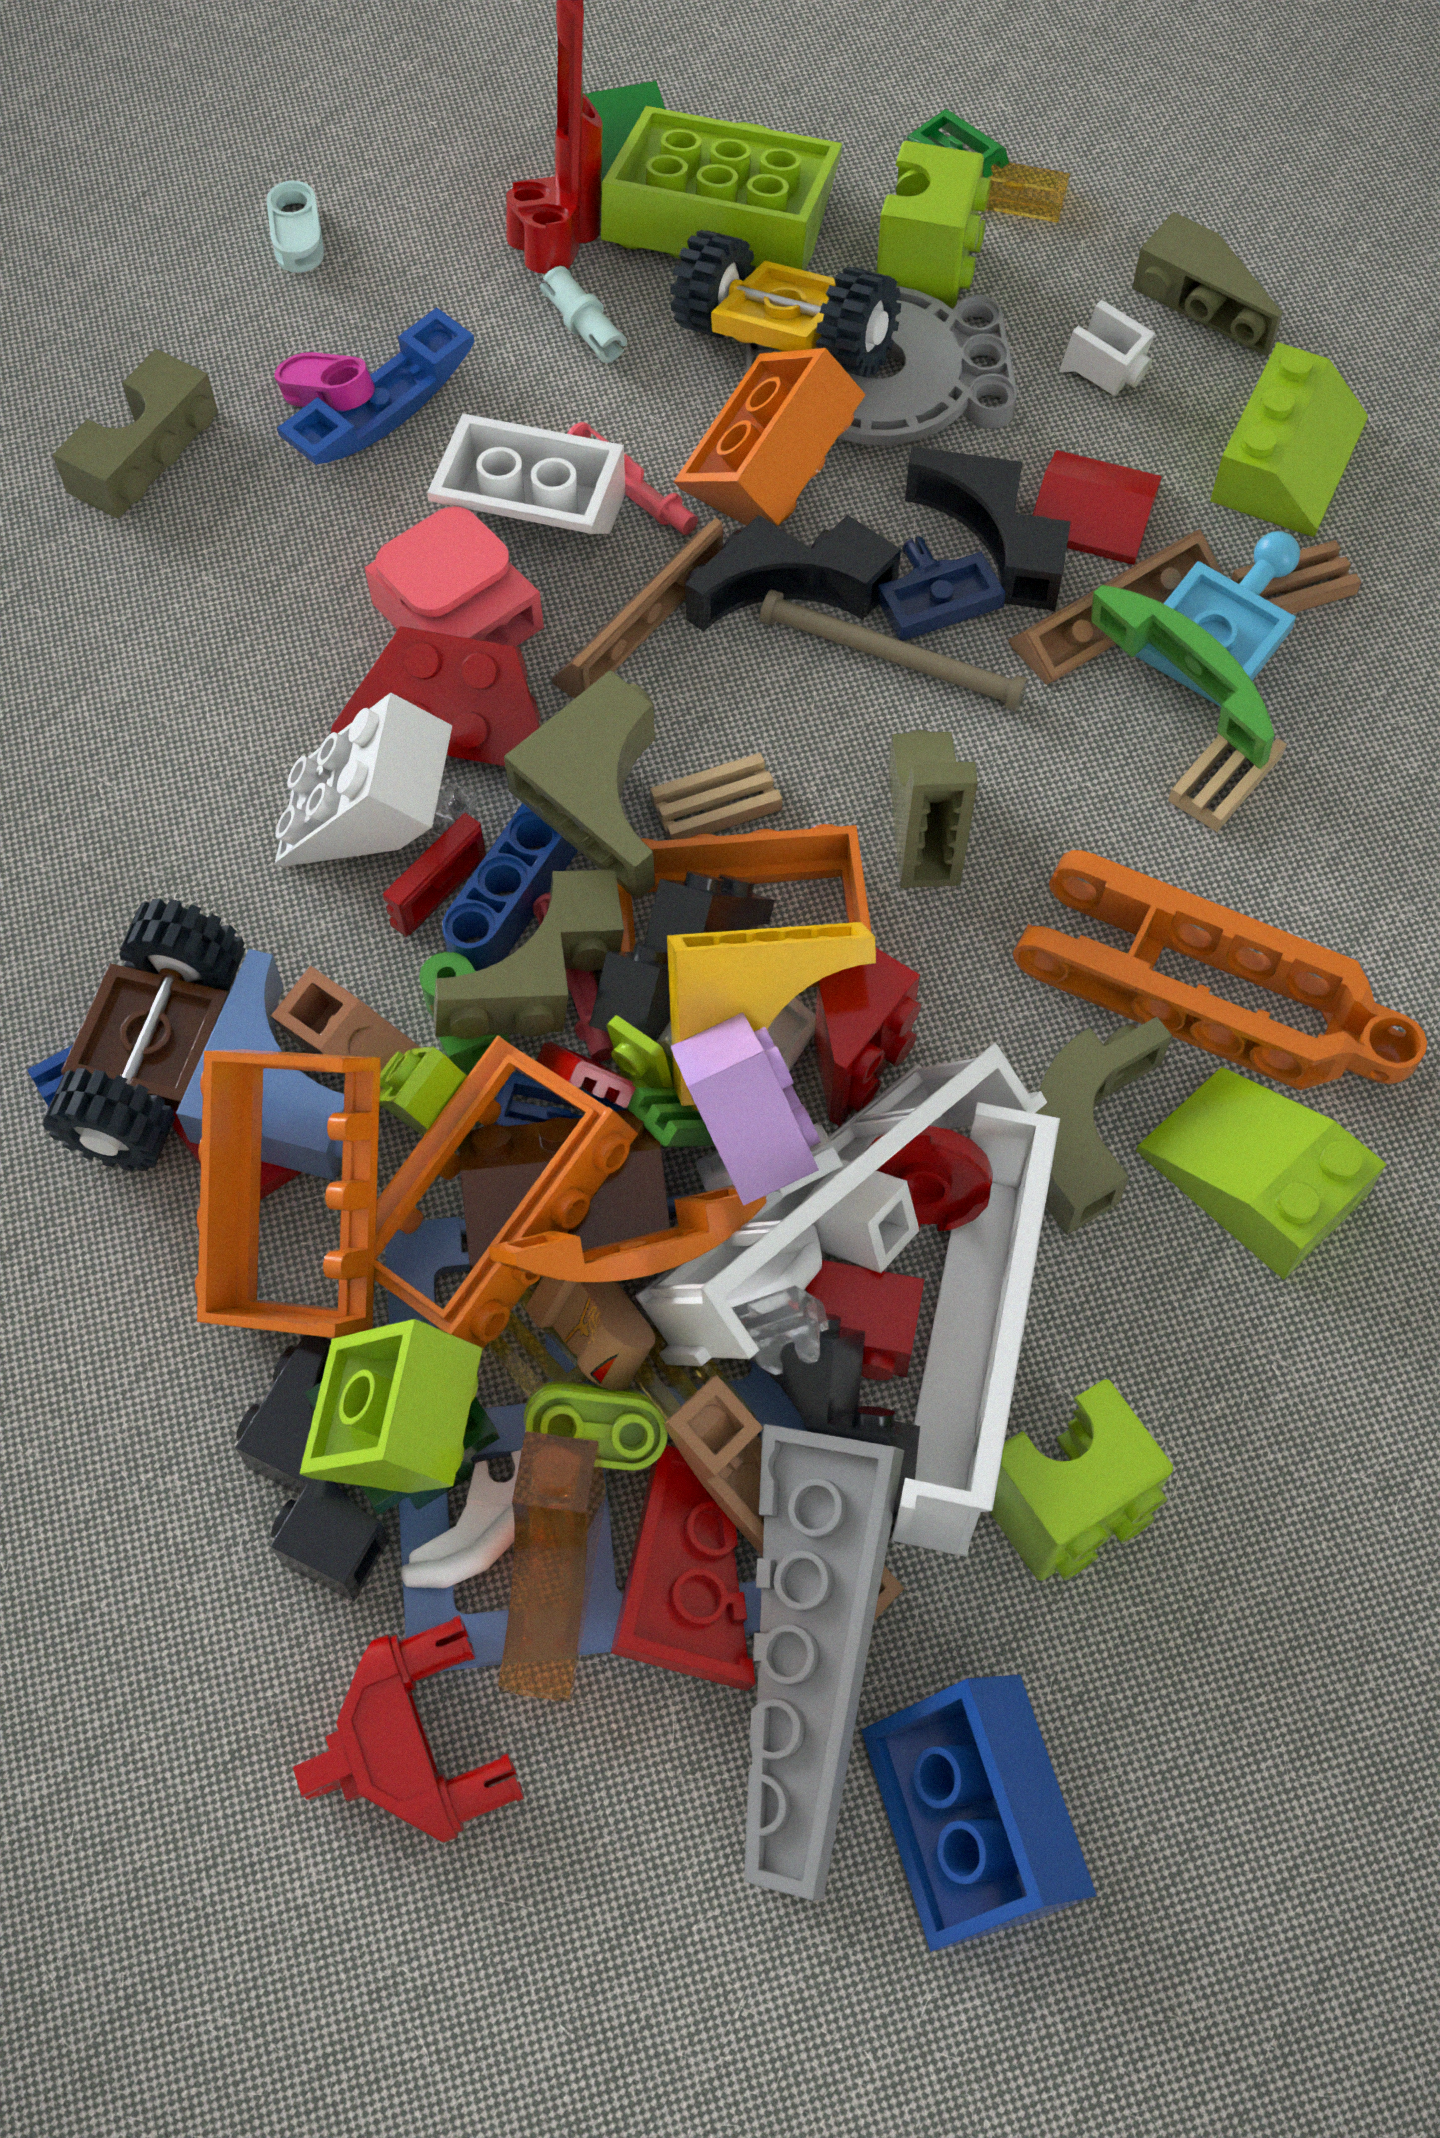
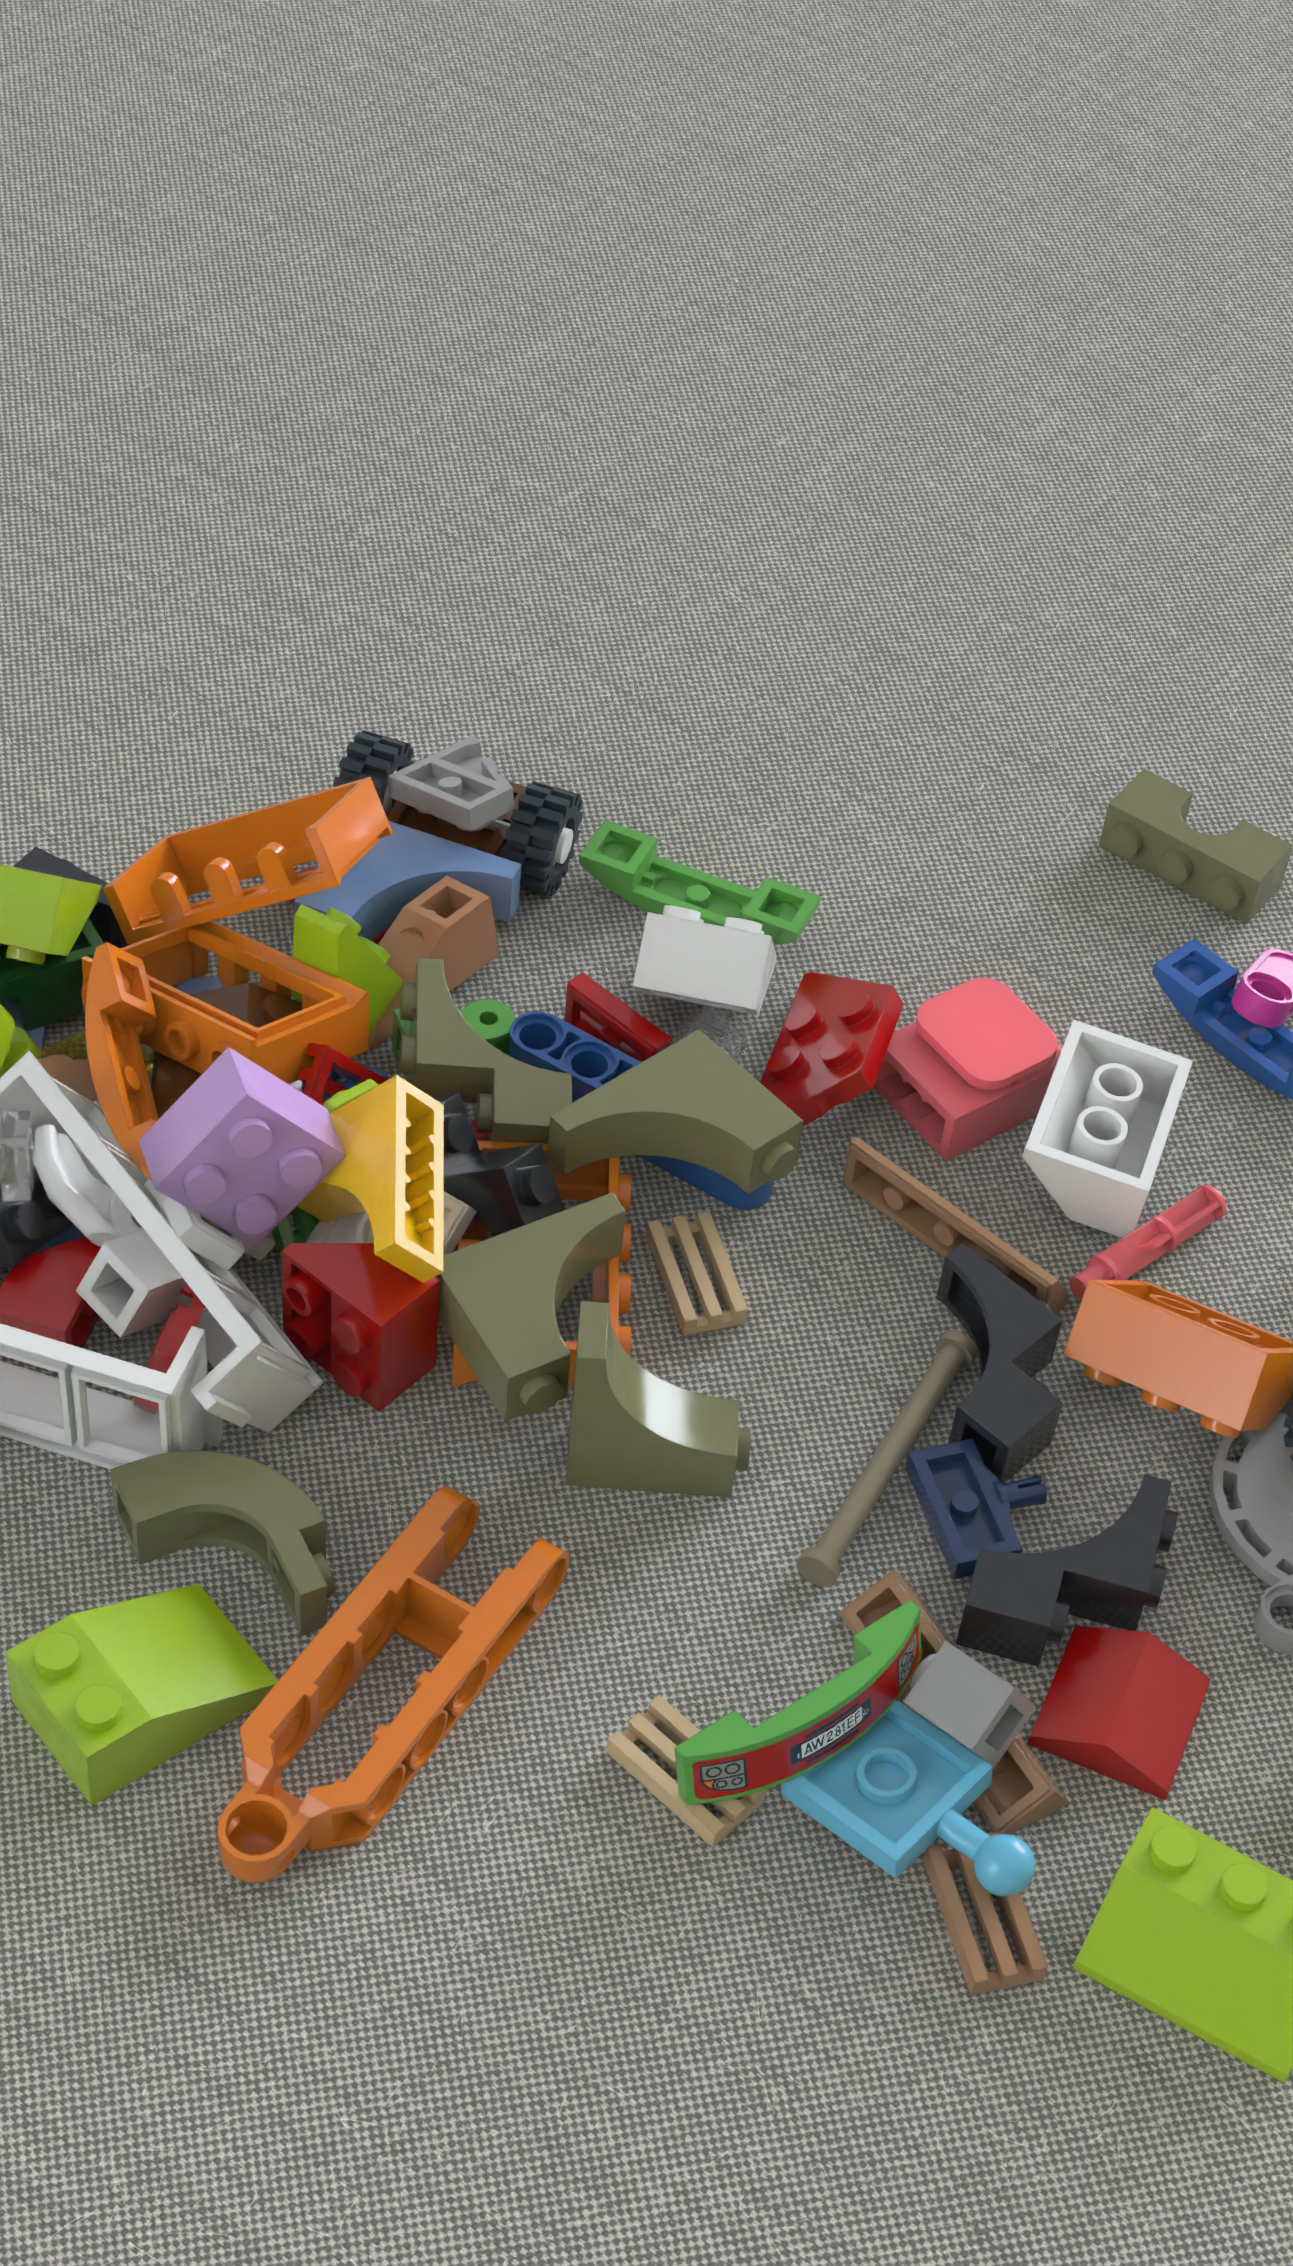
camera: 90 degrees right, 15 degrees down
(139, 1013) = (455, 786): none -> light grey wing
(234, 817) = (630, 867): none -> bright green slope
(818, 882) = (505, 1298): none -> olive arch
(1158, 563) = (968, 1702): none -> light grey brick

